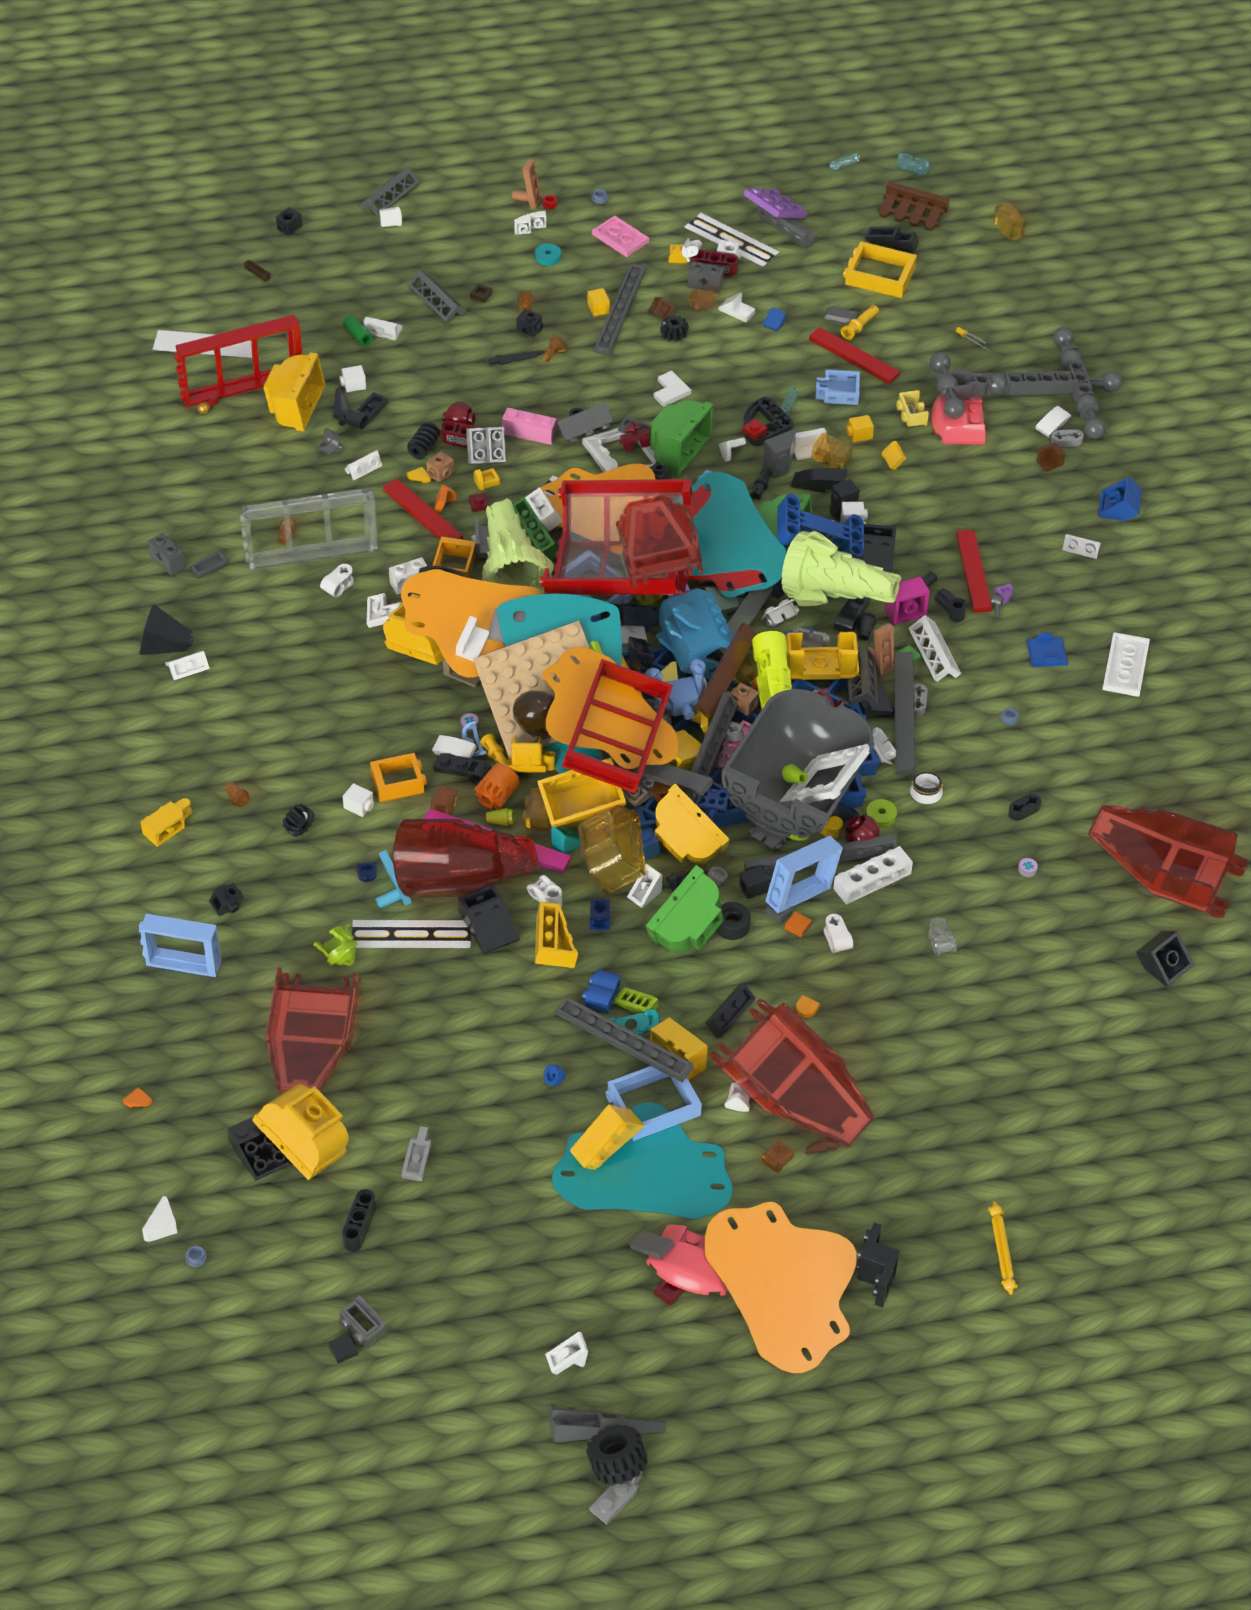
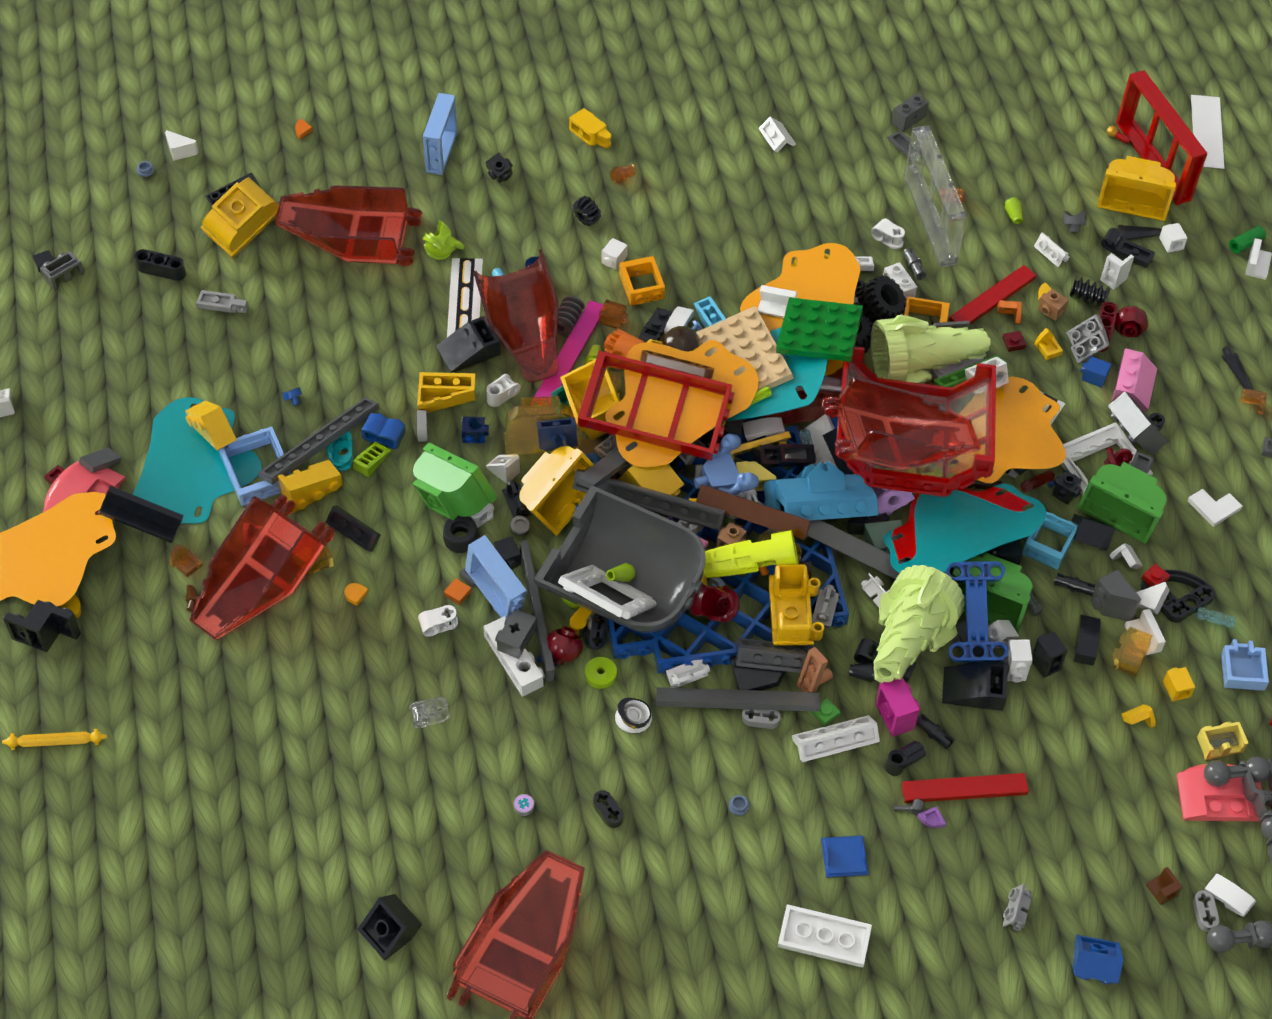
camera: 90 degrees right, 5 degrees up
(164, 634) = (807, 111): black slope -> none
(310, 487) = (1014, 210): none -> lime cone
(378, 565) = (914, 263): none -> dark grey pin
(402, 417) = (1116, 270): none -> white panel
(456, 715) = (708, 312): none -> medium azure slope
(521, 447) = (1095, 371): none -> blue brick
(521, 599) = (819, 329): none -> green plate
(576, 699) = (676, 364): none -> beam
(595, 958) = (422, 430): none -> light grey beam
(637, 816) = (557, 433): none -> dark blue brick
(705, 460) = (1092, 532): none -> black panel
(734, 1188) = (140, 514): none -> black panel
(777, 426) = (1153, 597): none -> white slope
(861, 860) = (516, 633): none -> dark grey brick

